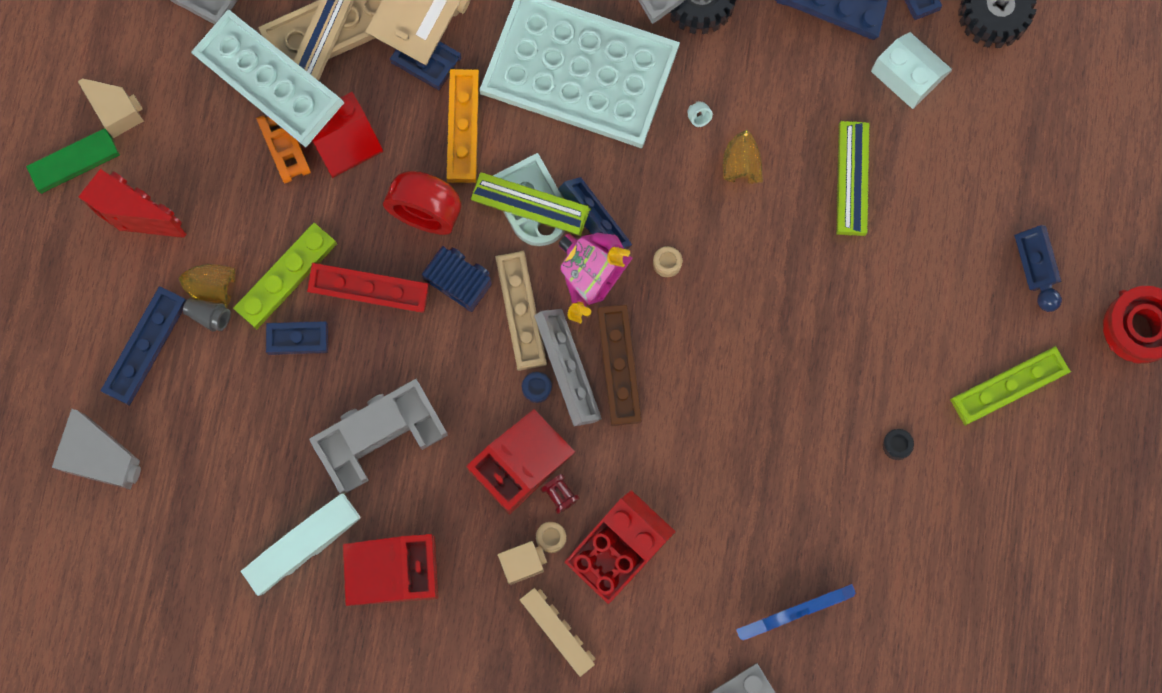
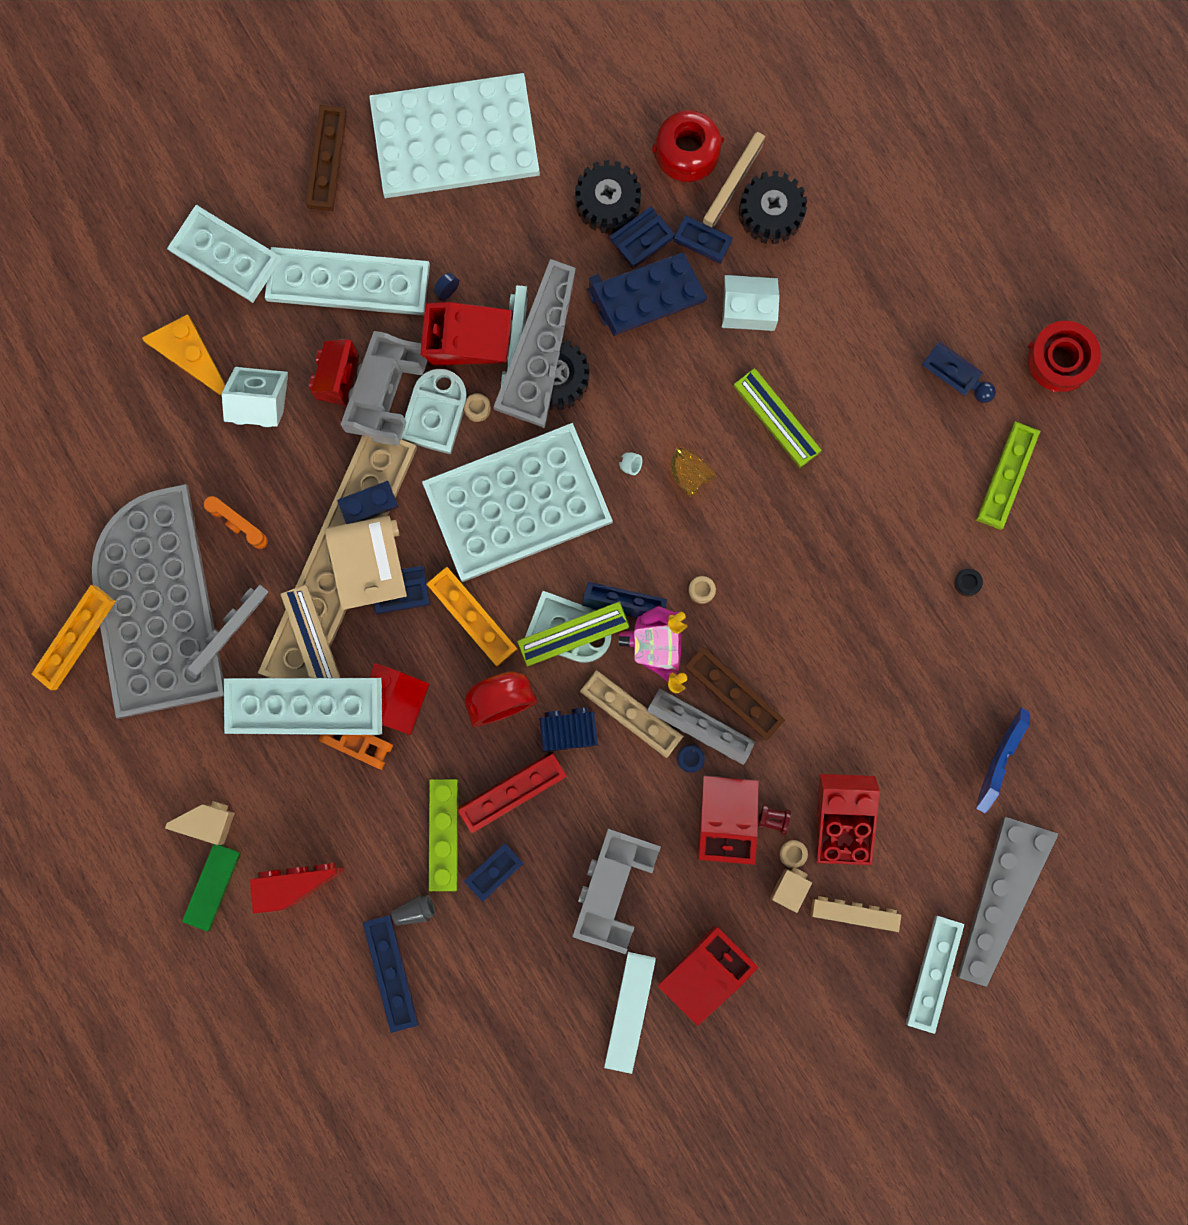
camera: 40 degrees left, 5 degrees up
(95, 454) = (428, 1079): light grey slope -> none
(208, 282) = (395, 888): clear yellow brick -> none

